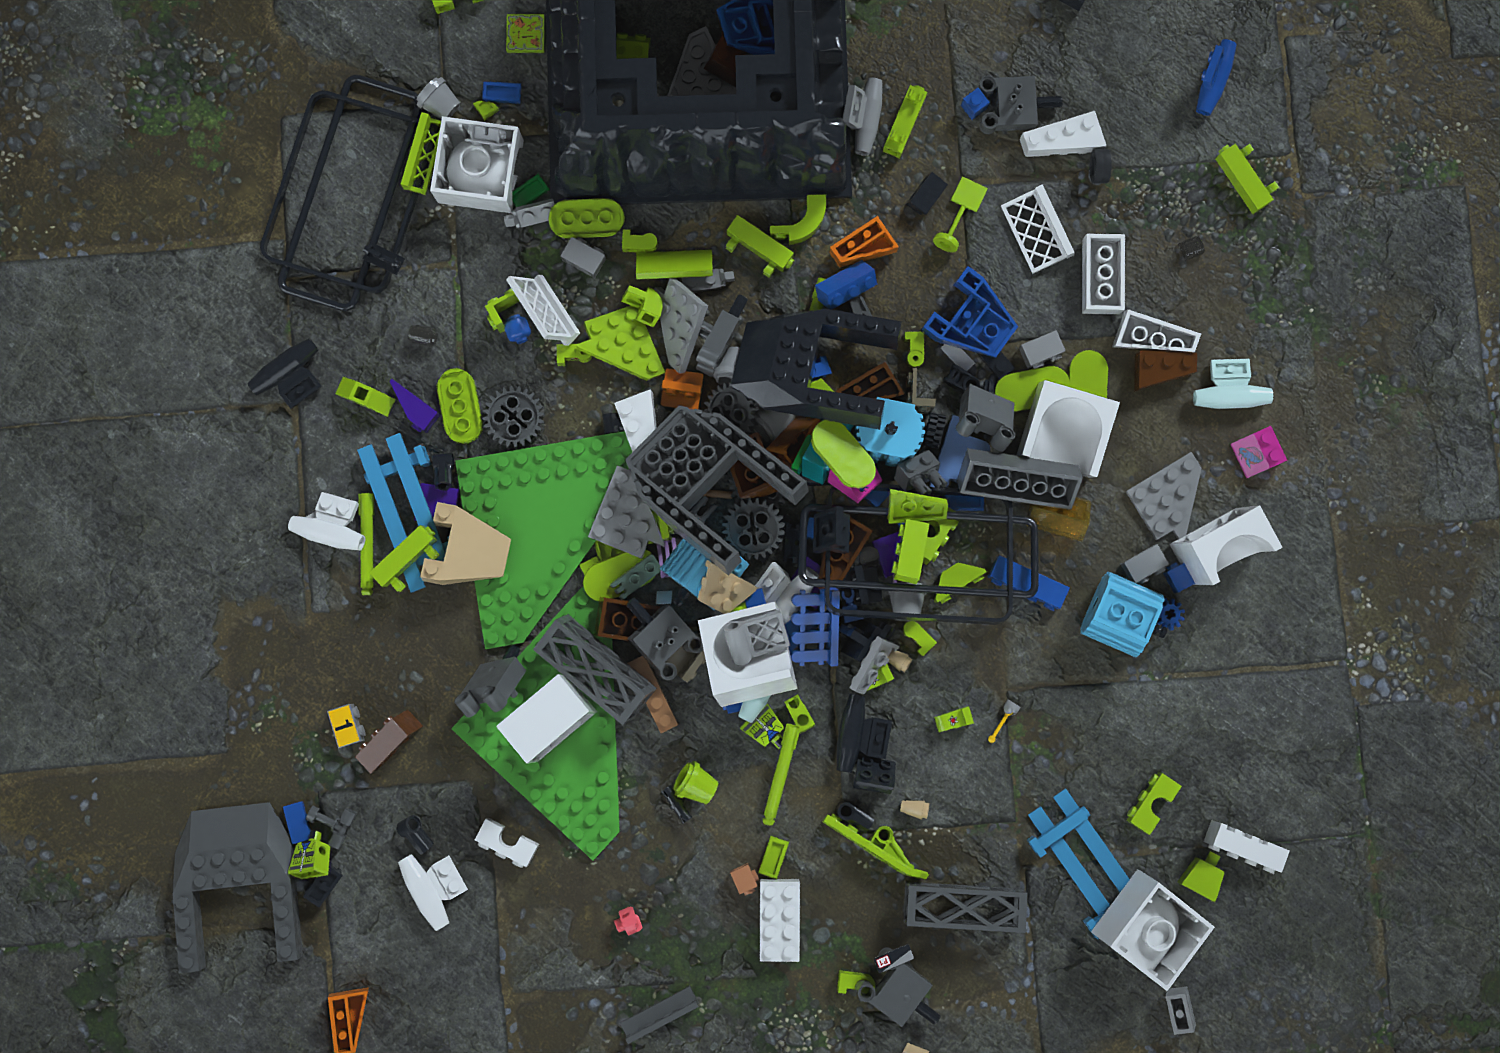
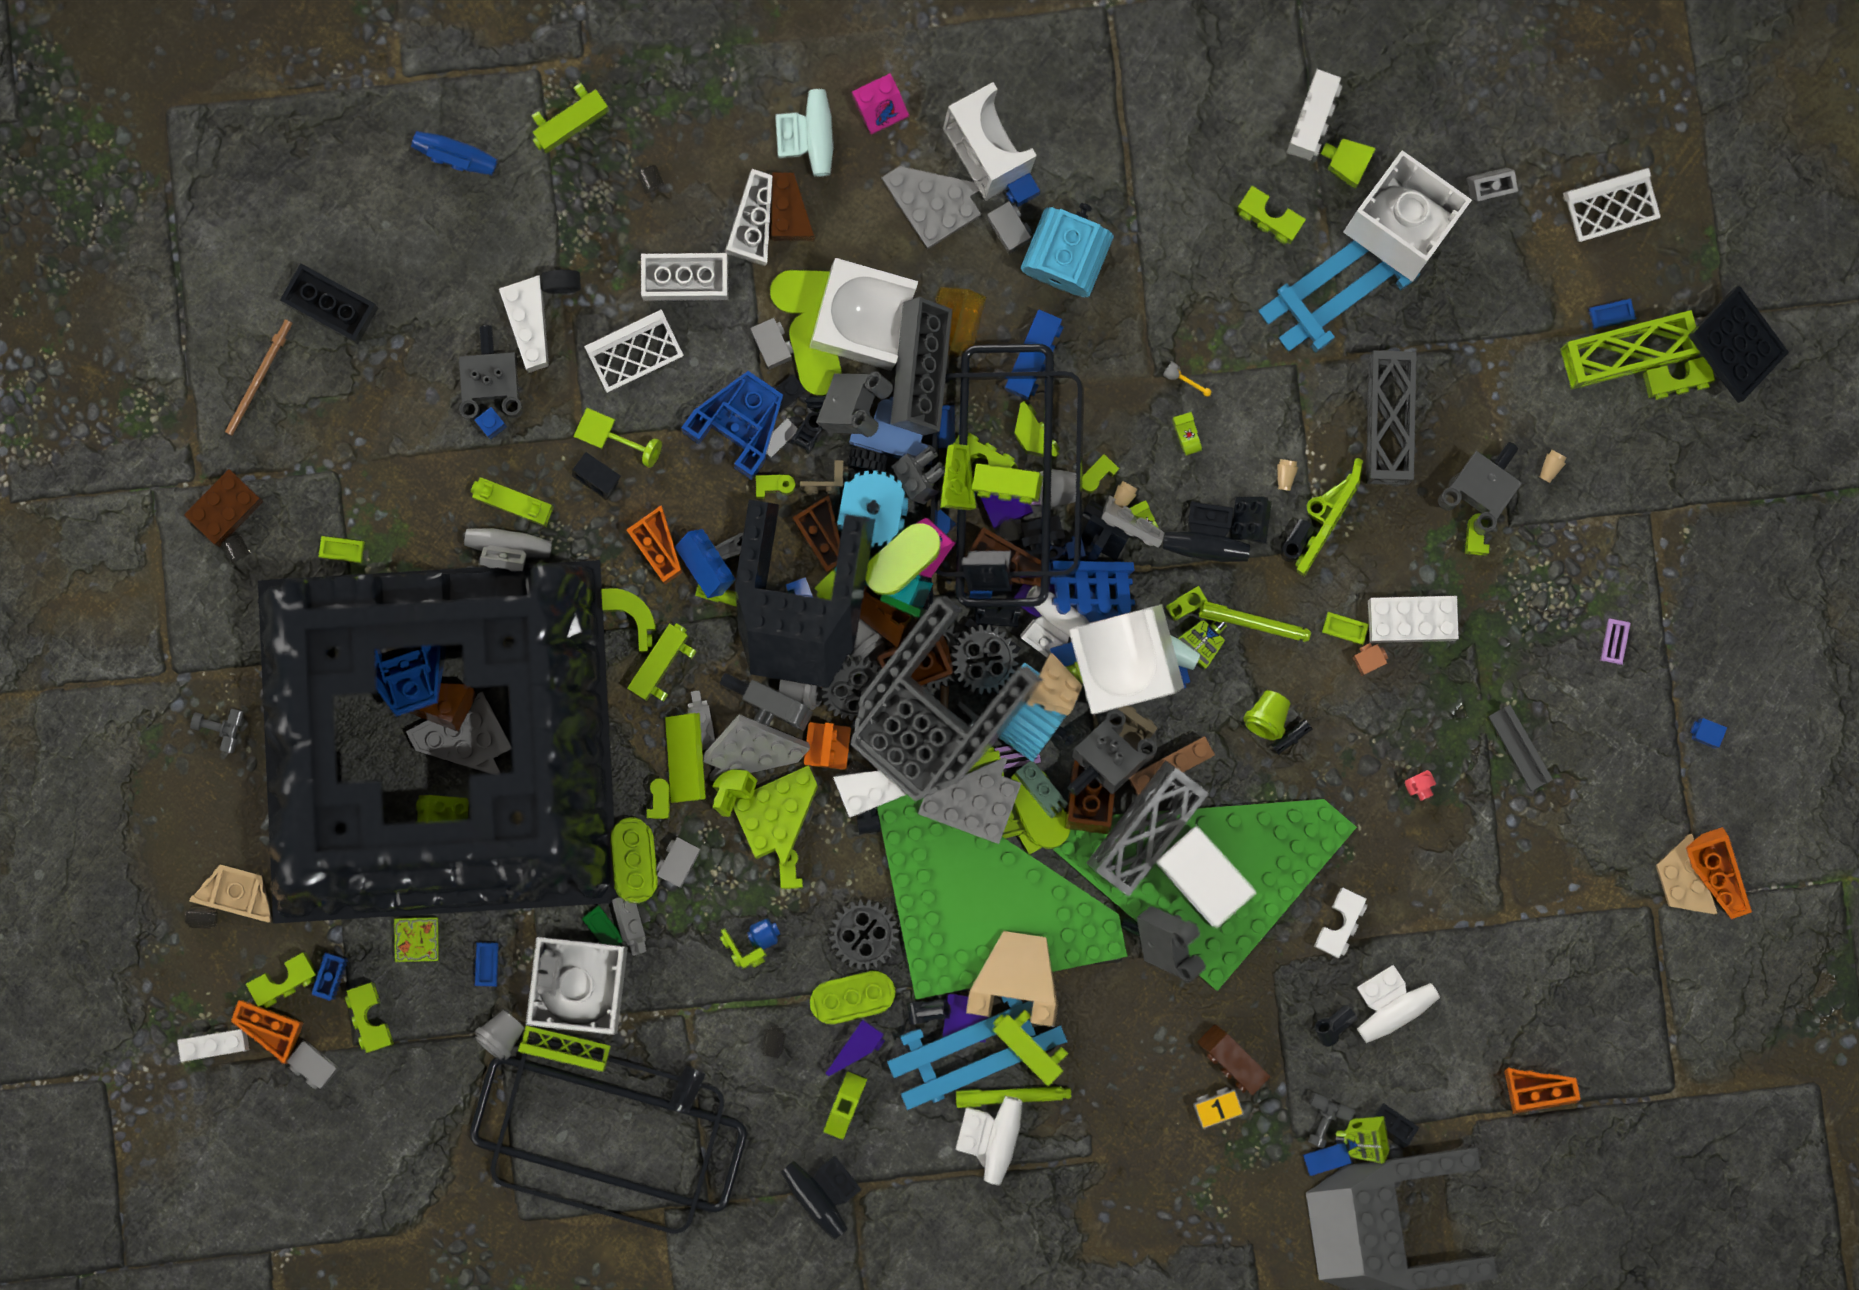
camera: 90 degrees left, 0 degrees up
(486, 109) = (506, 982): lime tile -> none
(550, 312) = (743, 893): white fence -> none
(664, 597) = (1063, 757): white sticker -> none
(740, 642) = (1113, 666): light grey piece -> none
(893, 958) = (1449, 493): sticker -> none
(1173, 620) = (1066, 193): blue gear -> none

